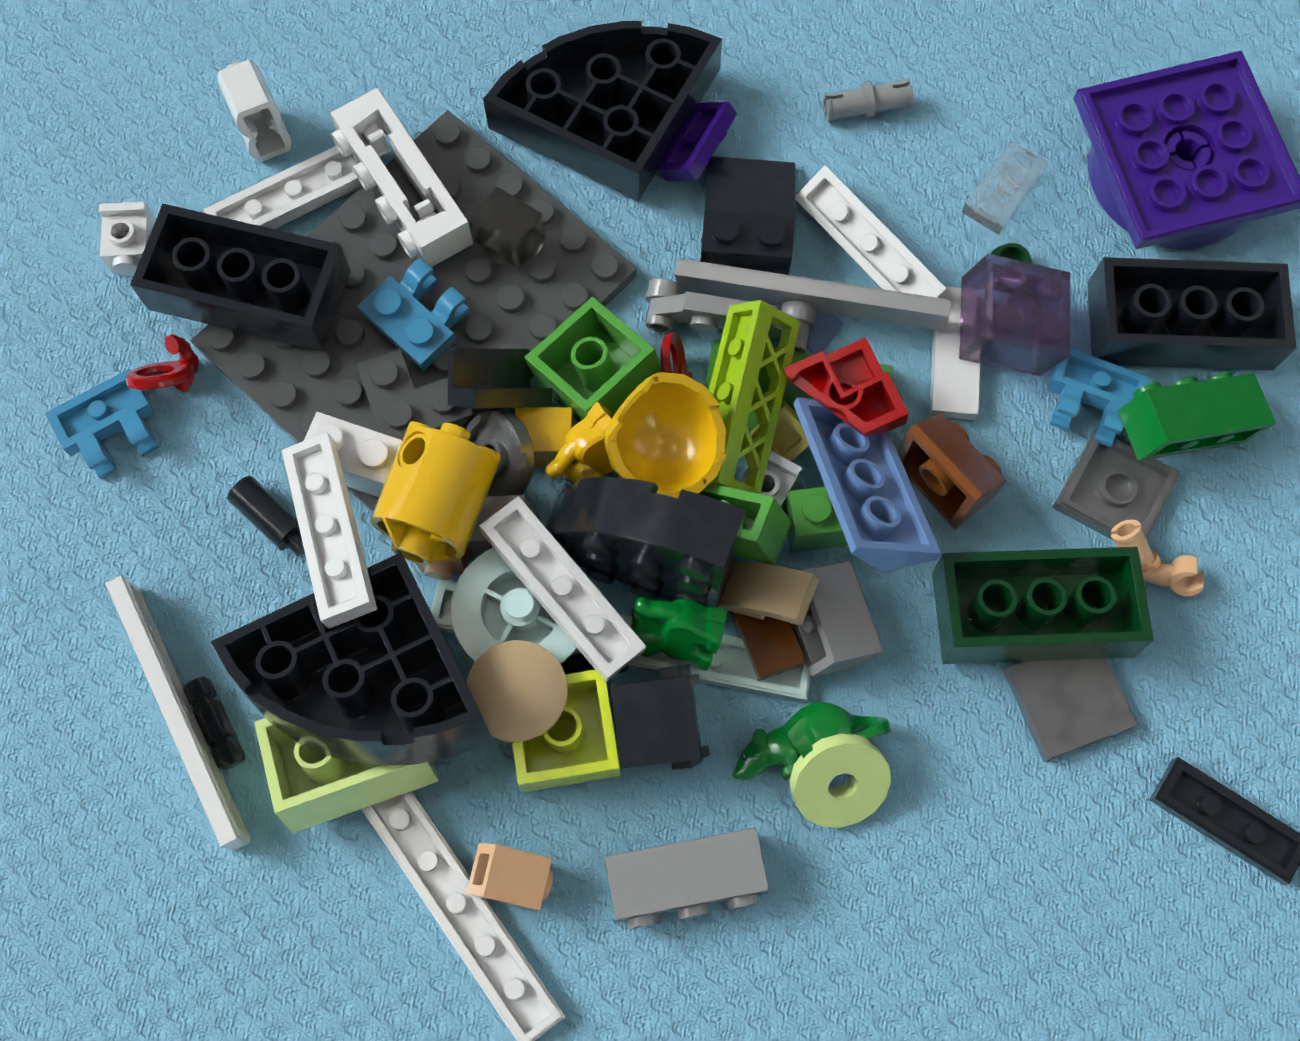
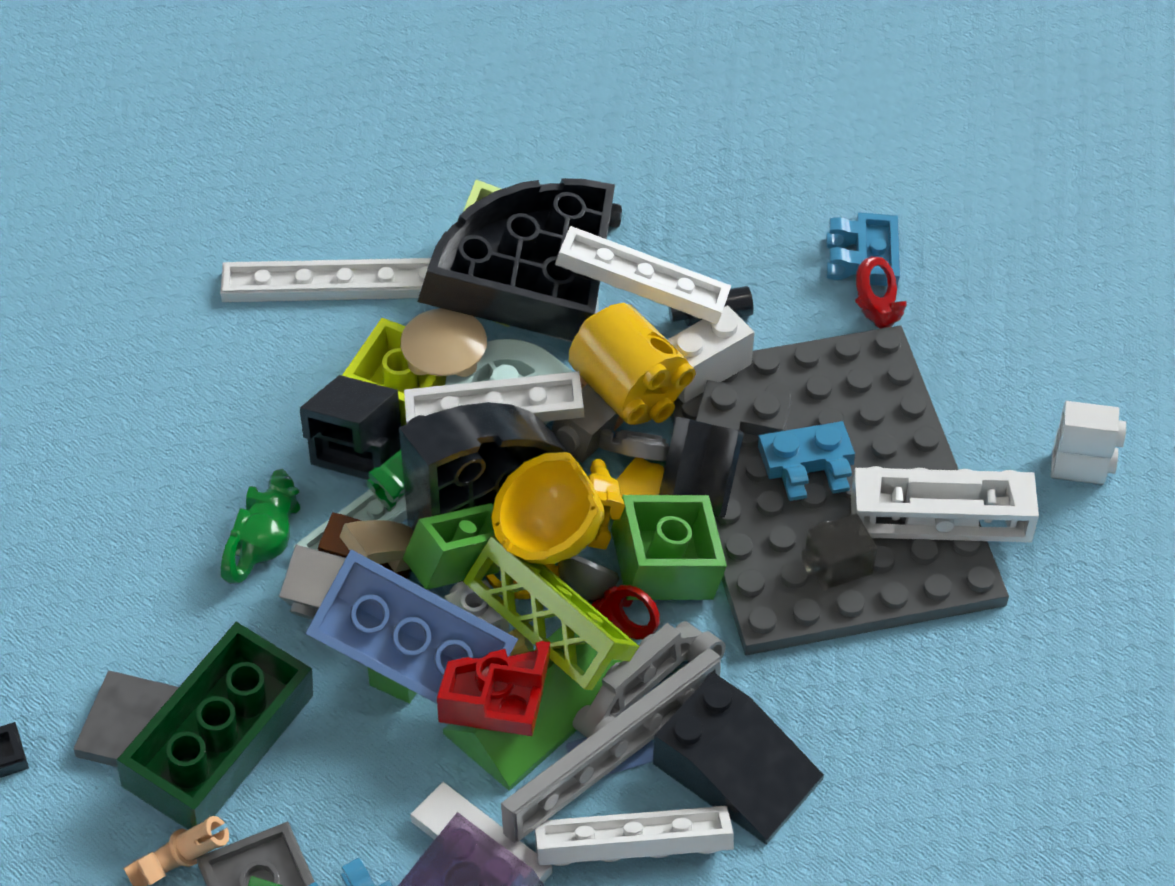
camera: 125 degrees right, 20 degrees down
(124, 235) = (1023, 327): white brick -> none
(178, 714) = (633, 193): white tile -> none
(242, 276) = (914, 353): black brick -> none
(291, 191) = (995, 428): white plate -> none
(510, 876) = (331, 302): light nougat brick -> none
(607, 98) = (923, 708): black brick -> none
(686, 877) = (241, 399): light grey brick -> none
(697, 141) = (839, 762): dark purple plate -> none
(854, 799) = (216, 515): yellowish green tile -> none
(949, 469) = (378, 740): dark orange slope -> none

